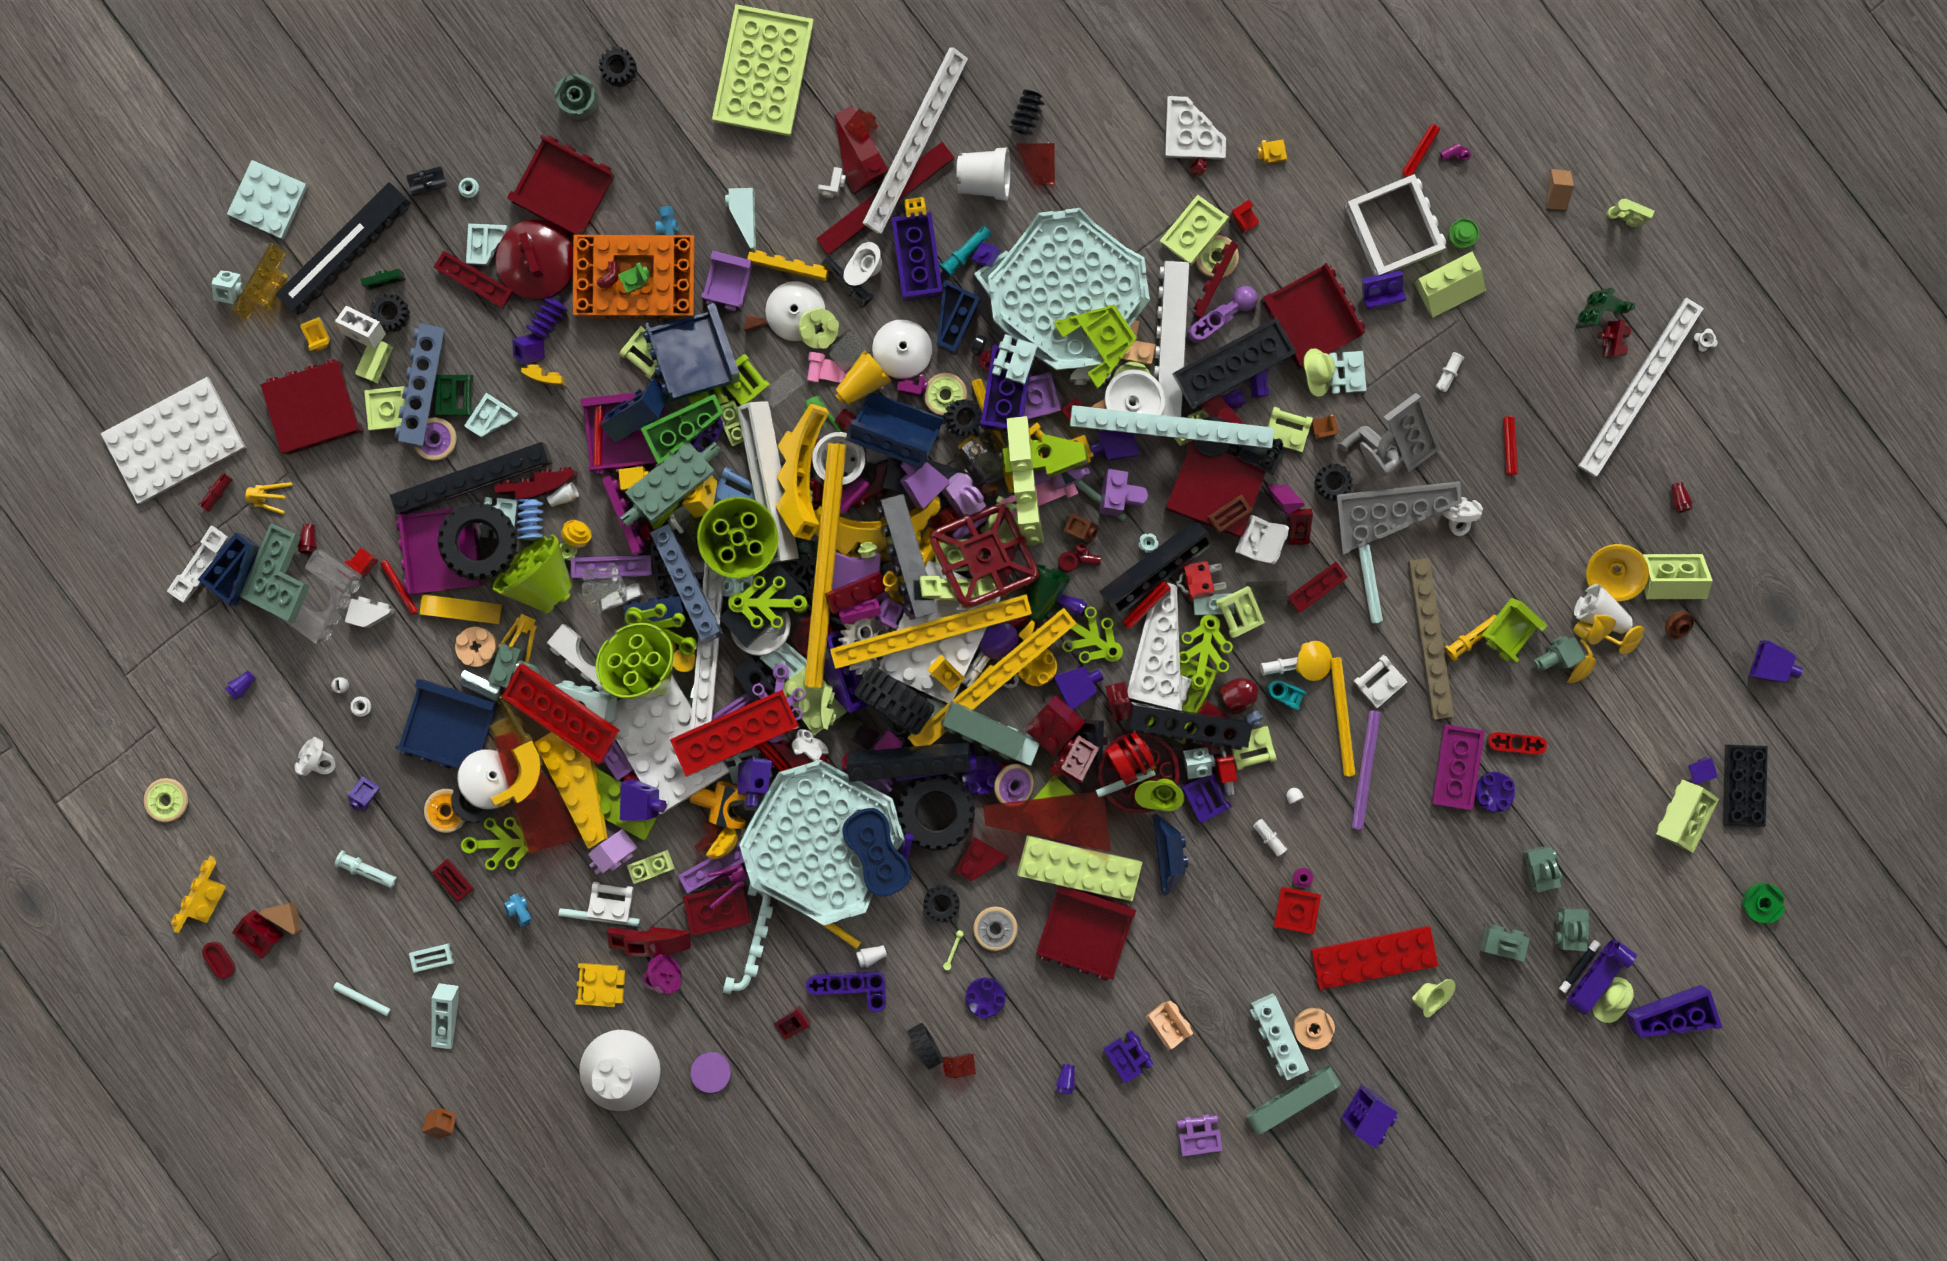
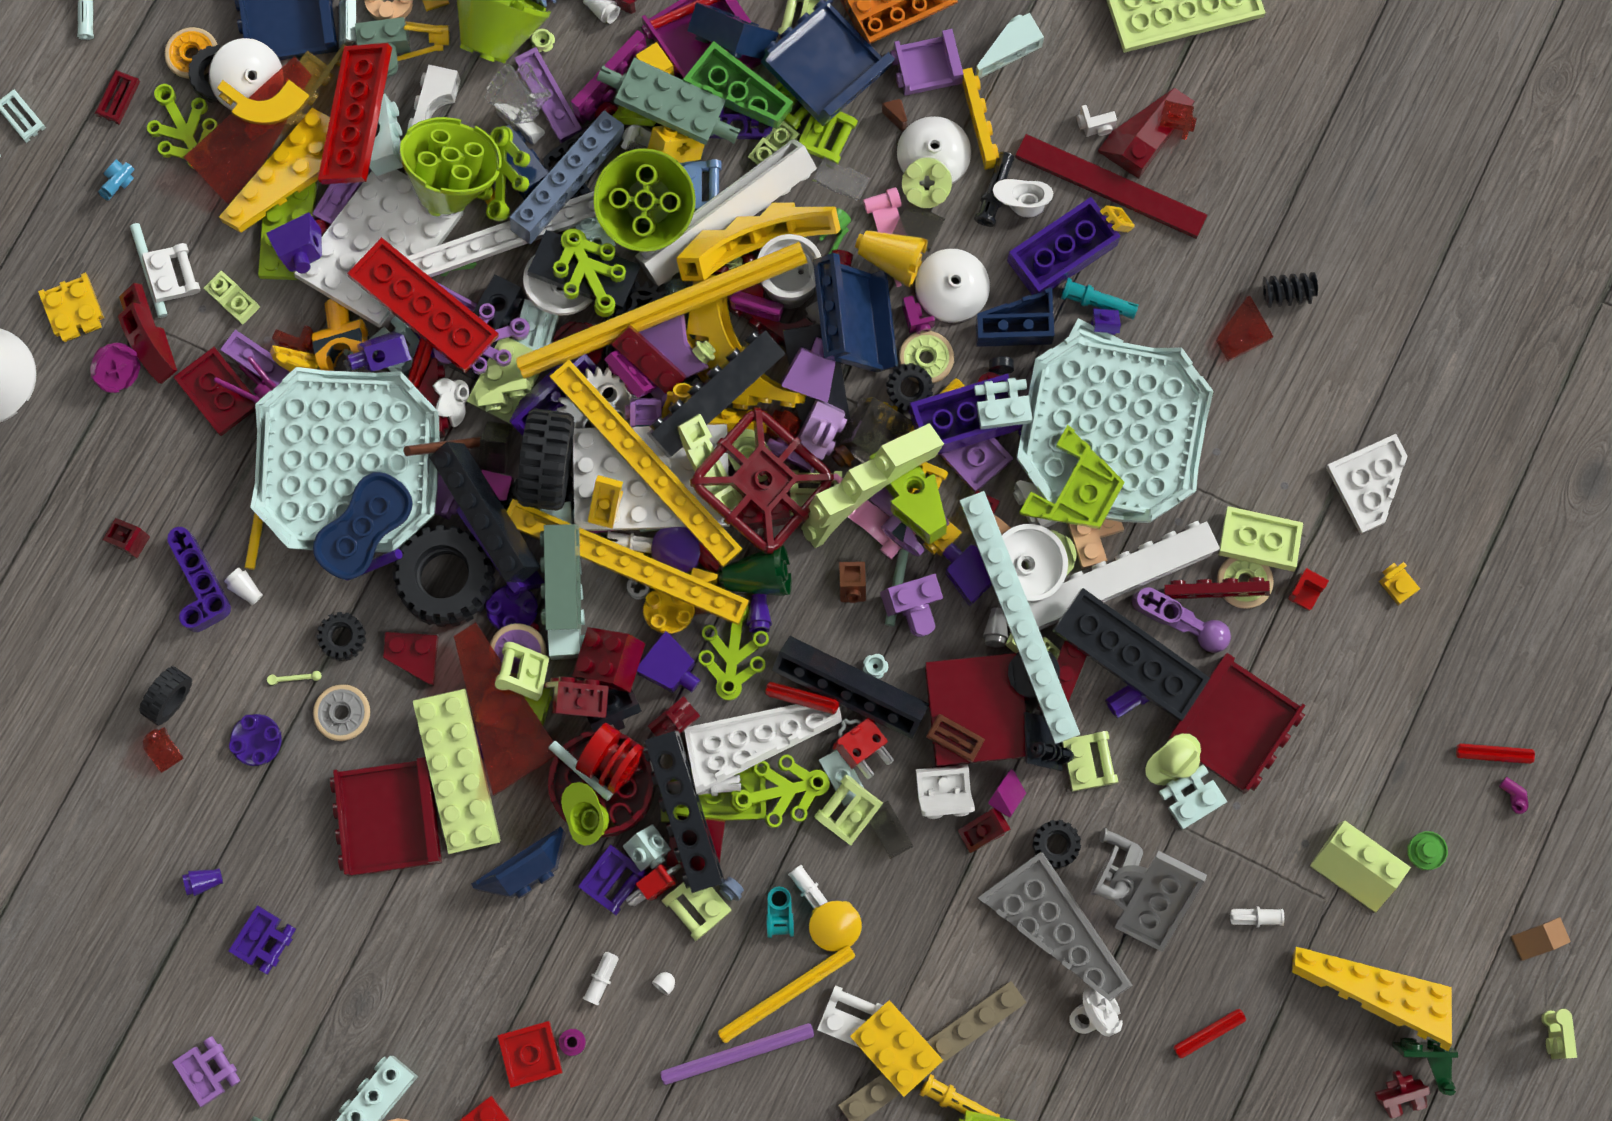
camera: 60 degrees right, 10 degrees down
(576, 533) = (565, 39): yellow plate -> none
(611, 852) = (227, 243): lavender brick -> none
(683, 662) = (477, 217): yellow piece -> none
(710, 1072) = (27, 475): medium lavender tile -> none
(755, 949) = (191, 456): light aqua bar -> none
(844, 774) = (433, 447): none -> copper bar
(915, 140) = (1192, 183): white plate -> none
(985, 173) = (1196, 275): white piece -> none
(1036, 783) = (530, 673): none -> yellowish green plate
(1068, 561) = (807, 586): dark red tile -> none
(1085, 557) = (822, 603): dark red arm -> none
(1164, 446) = (996, 629): none -> light grey cone
(1169, 1024) = (322, 969): light nougat bracket -> none
(1198, 167) = (1334, 509): dark red plate -> none
(1234, 399) = (1092, 681): dark purple cone -> none
(1239, 694) = (750, 856): dark red piece -> none
(1317, 587) = (924, 886): dark red plate -> none
(1324, 427) = (1113, 801): dark orange panel -> none
(1366, 239) = (1364, 805): white window -> none
(1370, 584) = (959, 948): light aqua axle -> none
(1383, 290) = (1310, 789): dark purple bracket -> none
(1417, 661) = (896, 1048): none -> yellow plate
(1547, 312) = (1387, 994): none -> yellow wing

